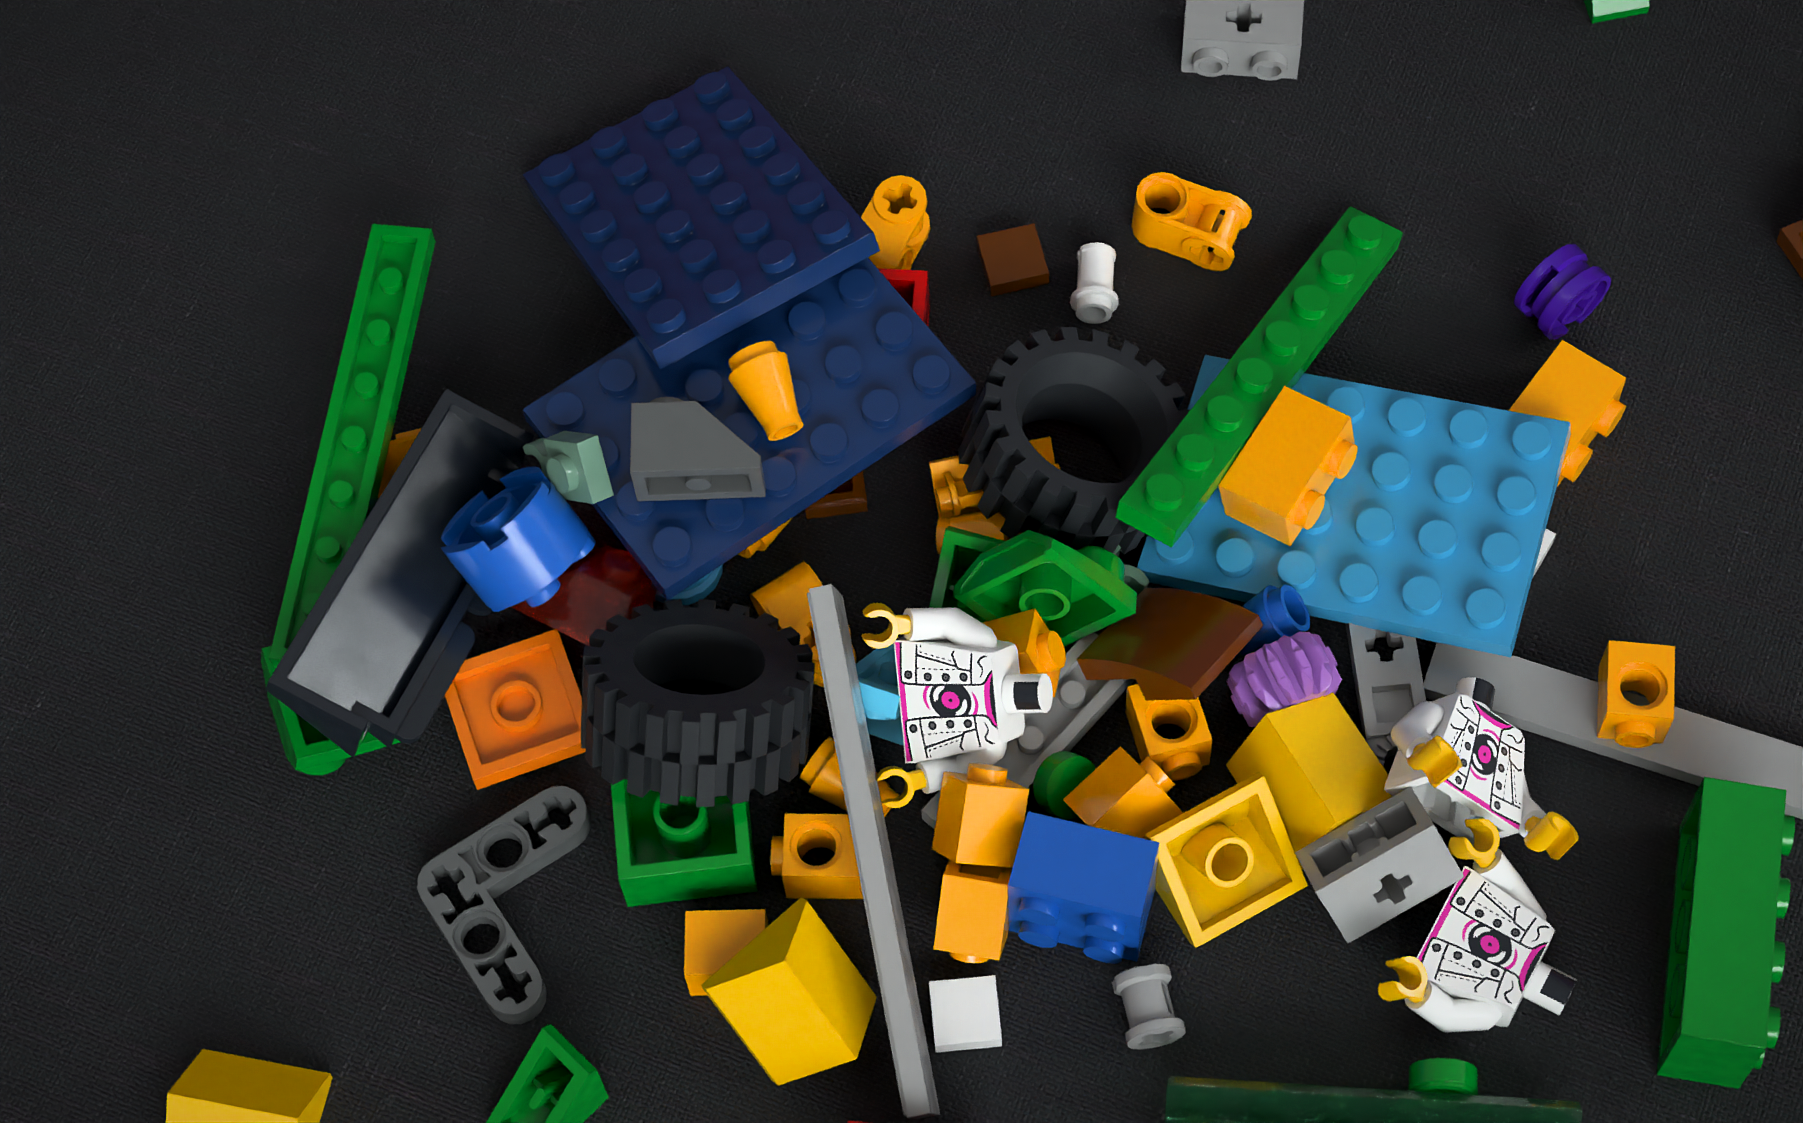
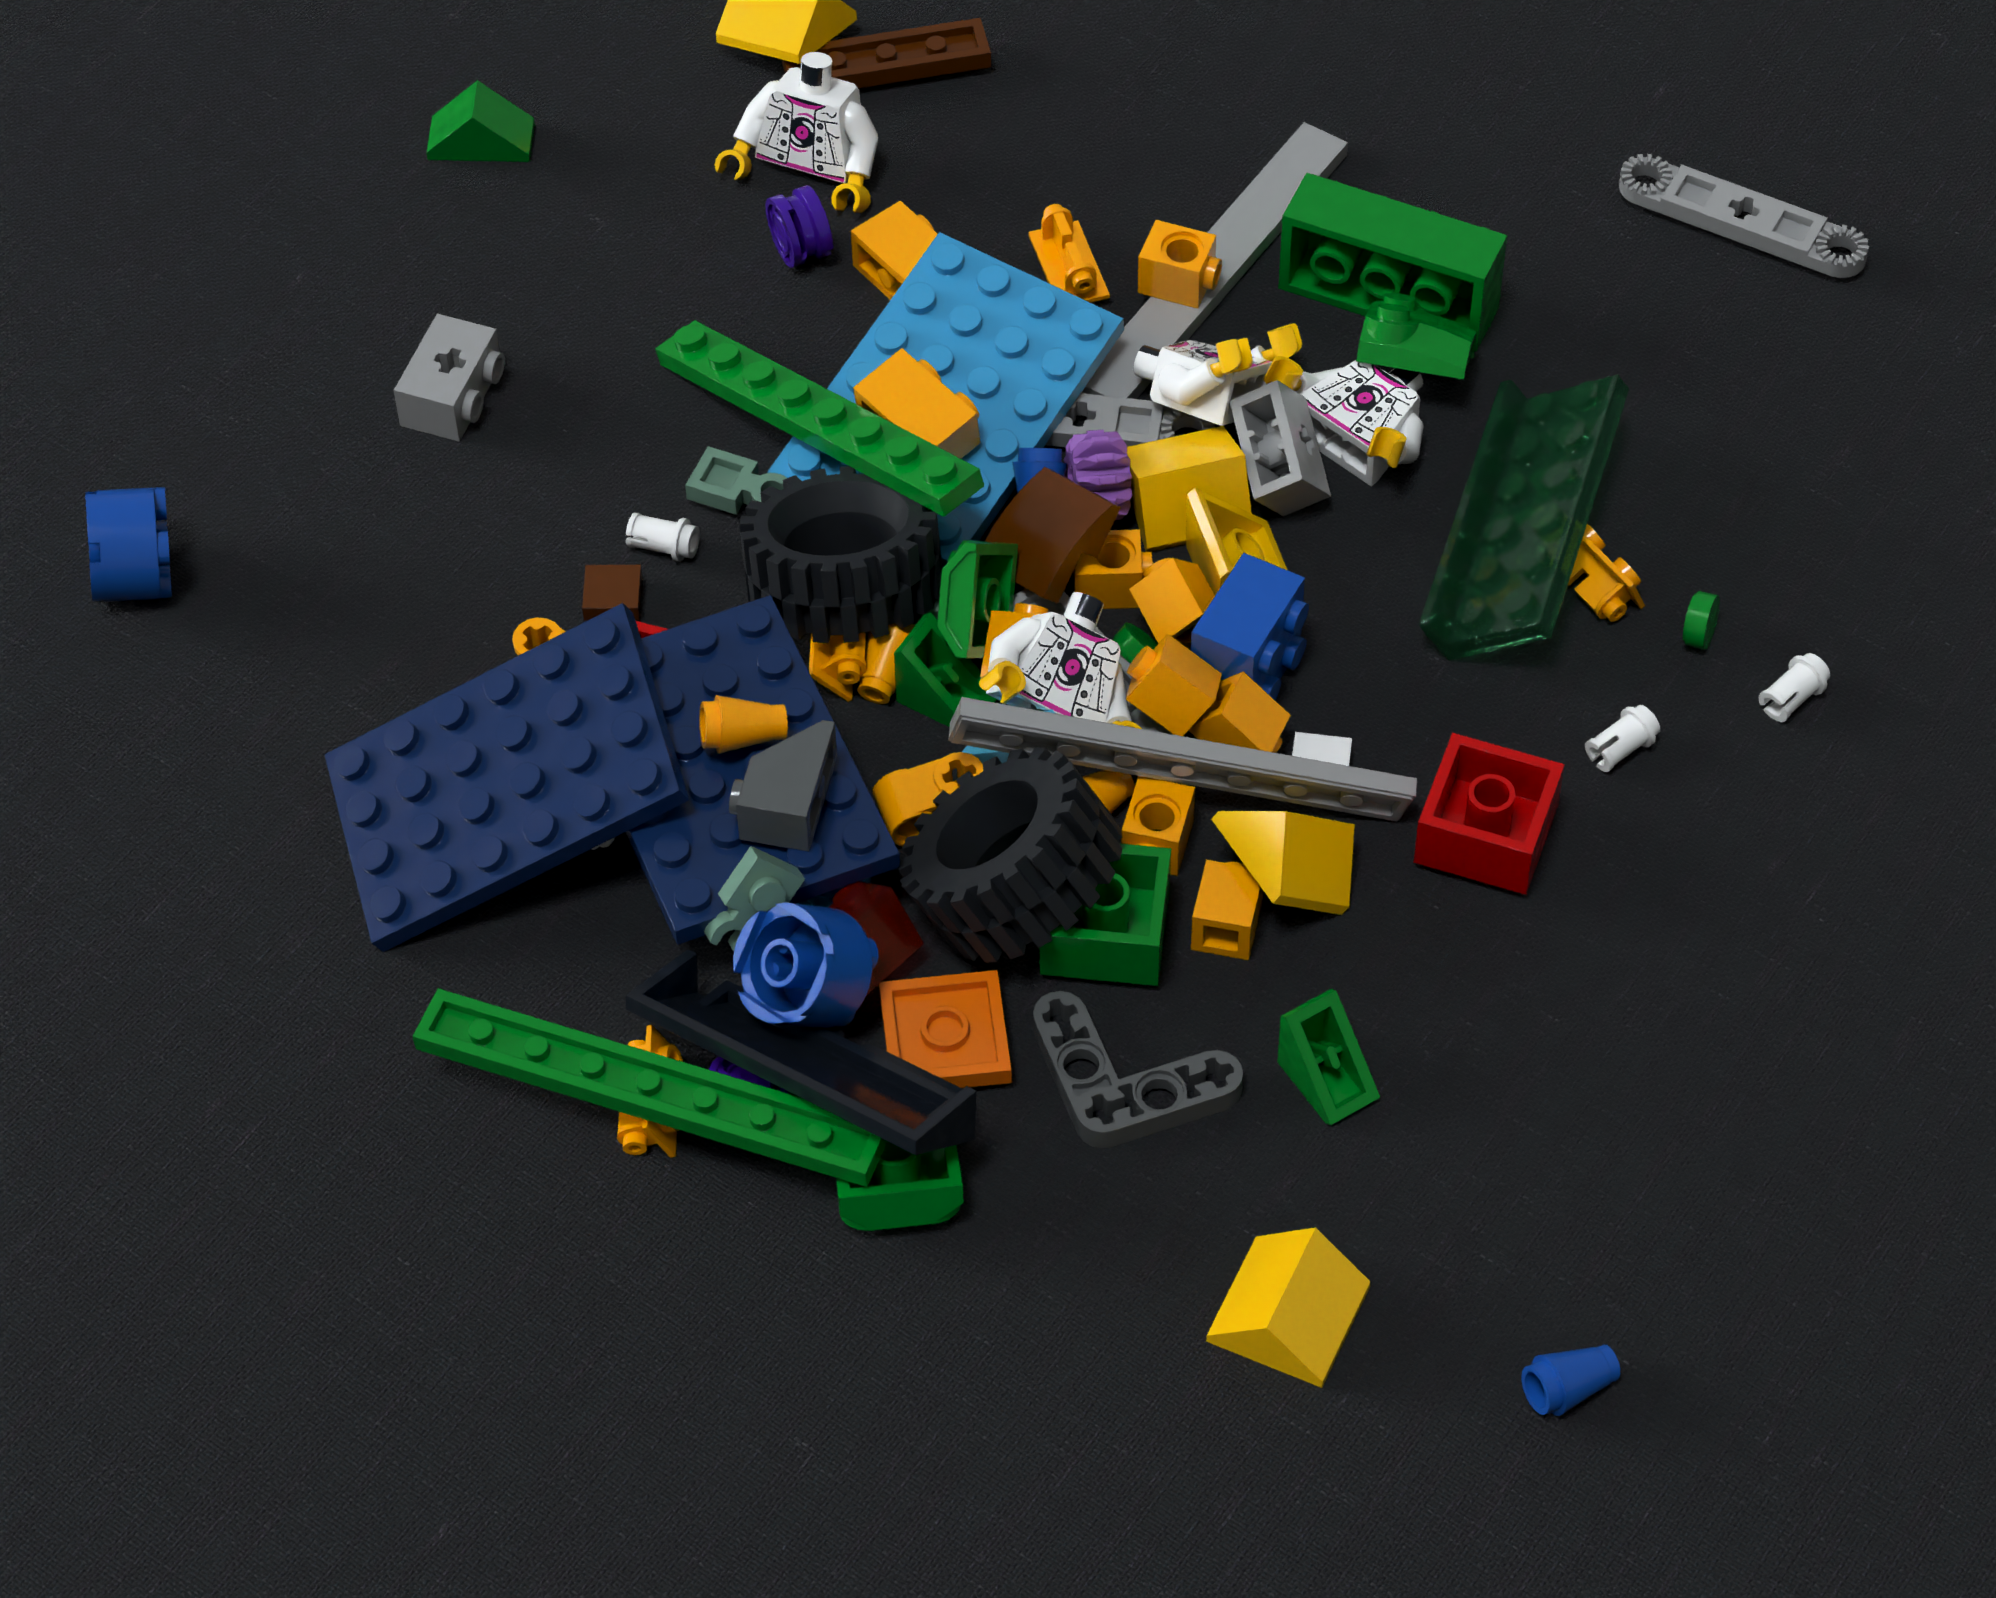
camera: 80 degrees left, 10 degrees down
(1148, 1006) = (1350, 635): light grey bush -> none
(1184, 326) = (728, 481): none -> sand green plate
(1192, 220) = (628, 458): light orange piece -> none
(1443, 1076) = (1459, 464): green tile -> none
(1604, 986) = (1413, 340): none -> green slope
(1626, 584) = (1067, 255): none -> light orange hinge
(1711, 266) = (811, 127): none -> white torso

